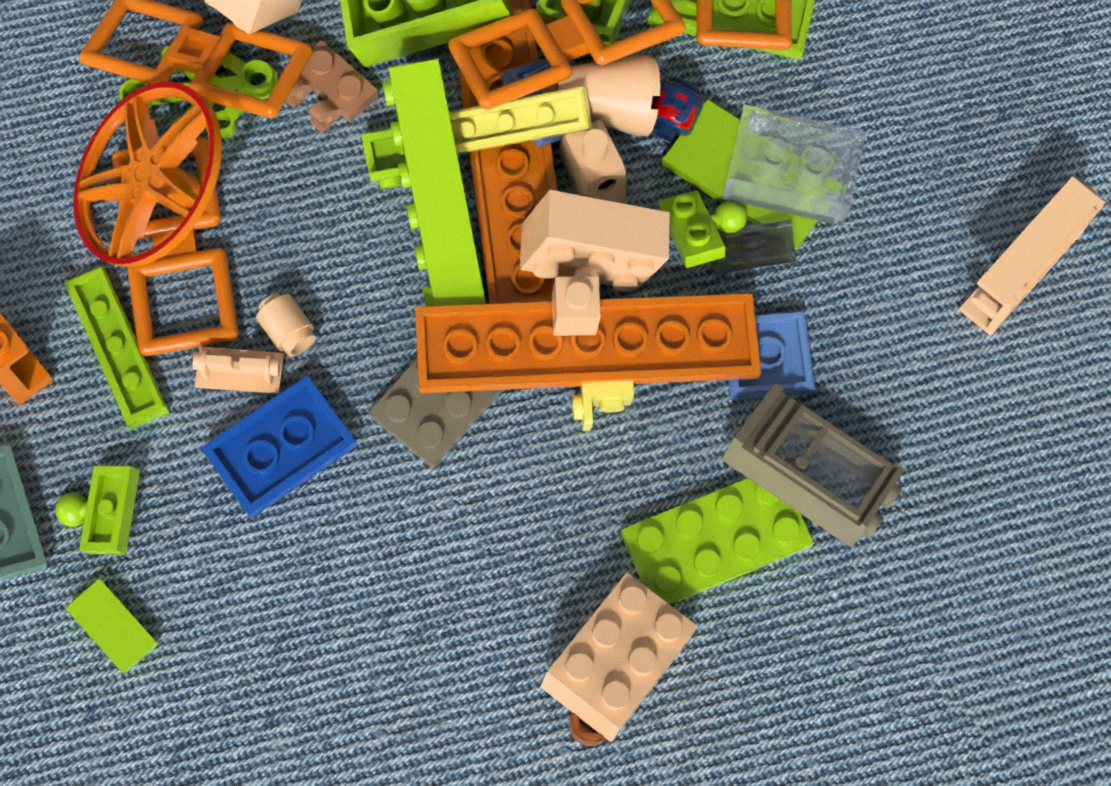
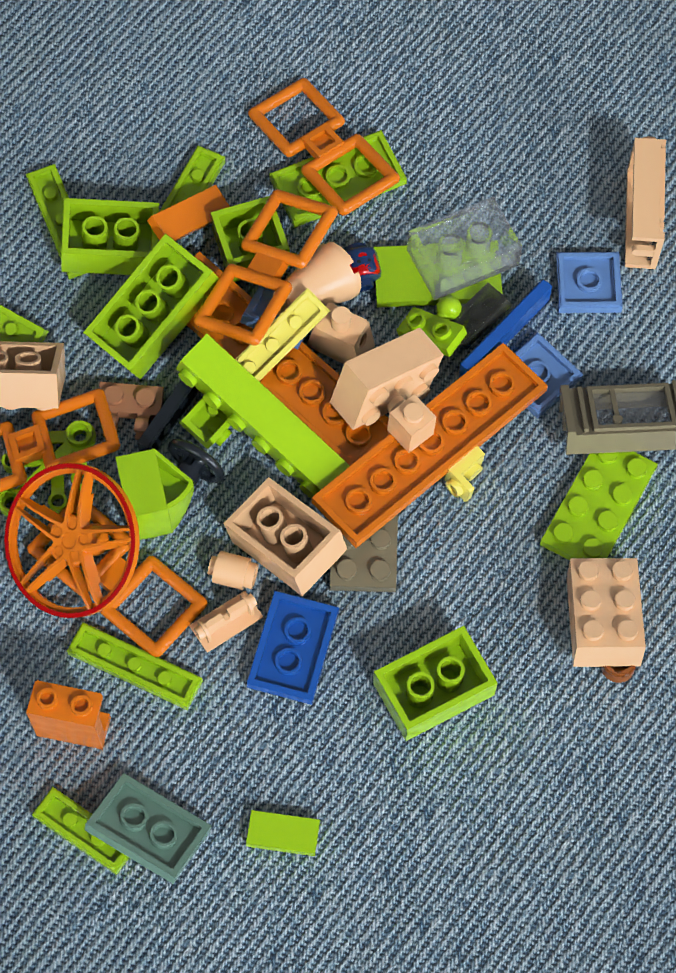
camera: 35 degrees left, 5 degrees down
(106, 512) = (220, 766): lime plate -> none
(267, 187) = (161, 489): none -> lime piece
(358, 120) = (167, 417): none -> black tile
(358, 328) = (285, 536): none -> light nougat brick
(380, 593) = (434, 683): none -> lime brick
(779, 281) = (510, 325): none -> blue tile
(904, 297) = (588, 282): none -> medium blue tile

